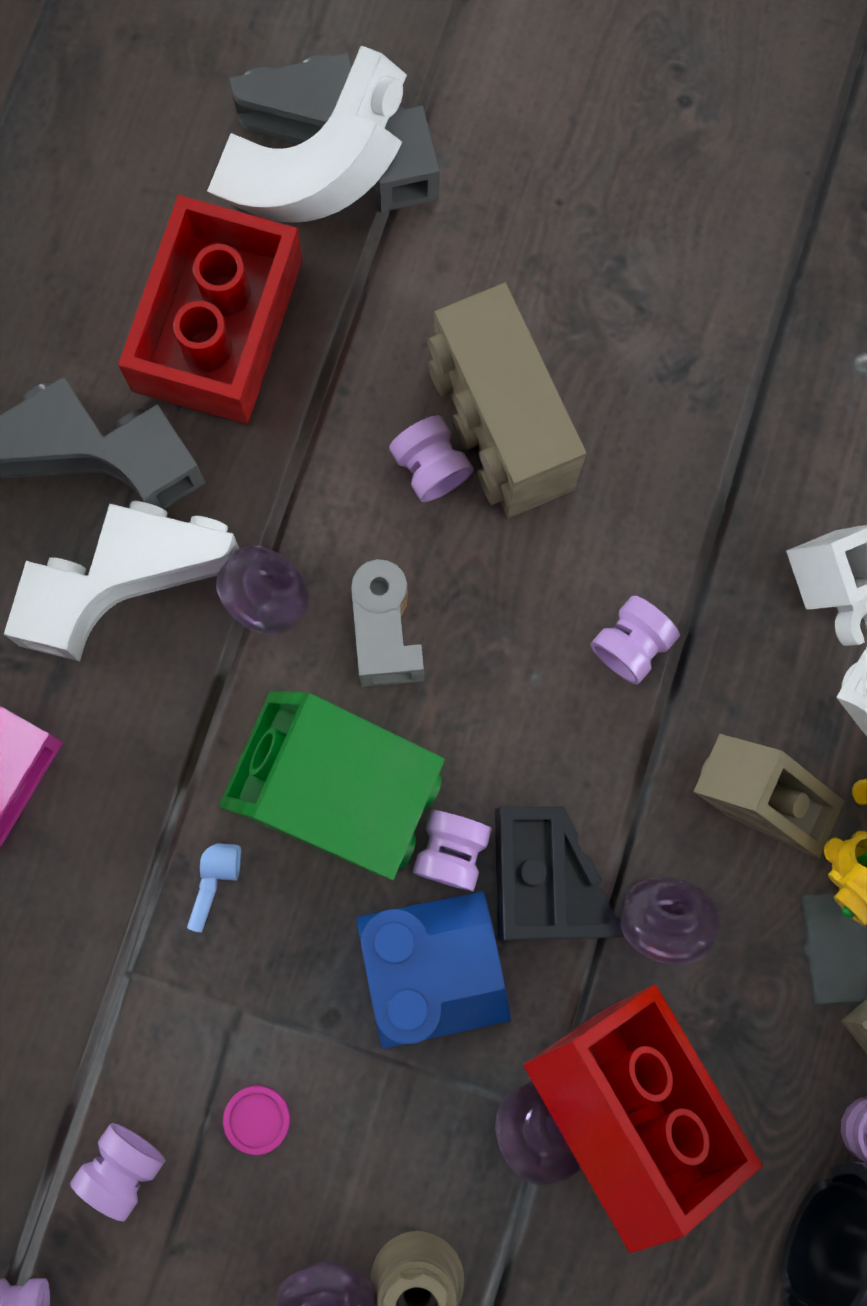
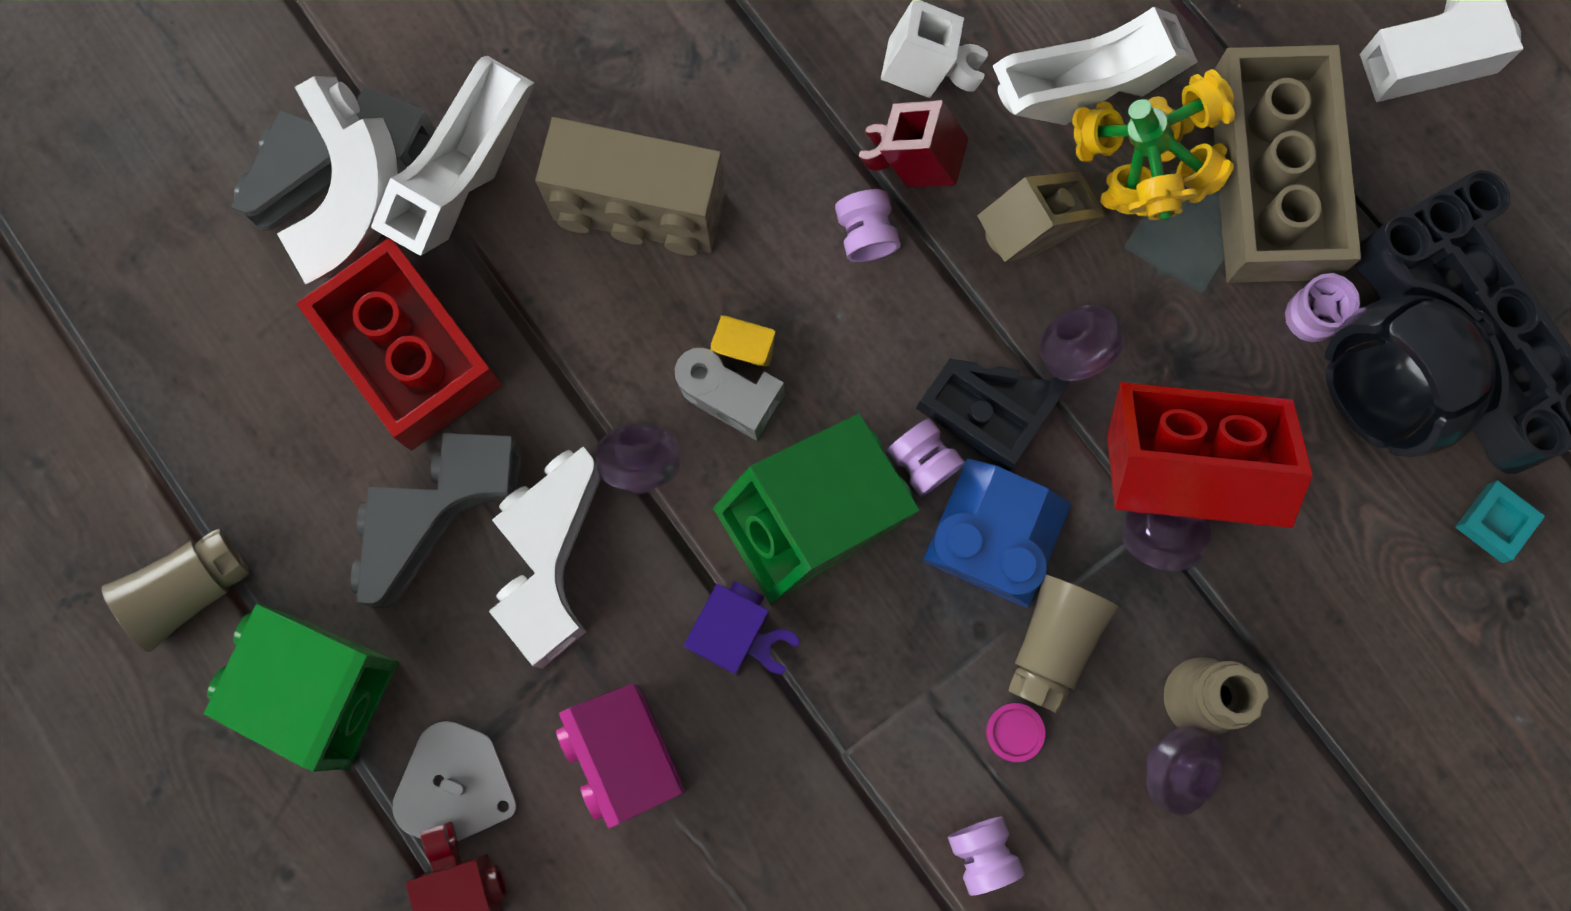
camera: 50 degrees left, 0 degrees up
(162, 788) = (731, 630): none -> dark purple brick
(216, 863) = (813, 630): light blue hand -> none
(364, 1101) = (1059, 642): none -> dark tan plant
(426, 234) = (460, 156): none -> white arch
(430, 457) = (630, 271): lavender wheel -> none
(435, 606) = (744, 341): none -> yellow slope
(748, 631) = (919, 144): none -> dark red brick

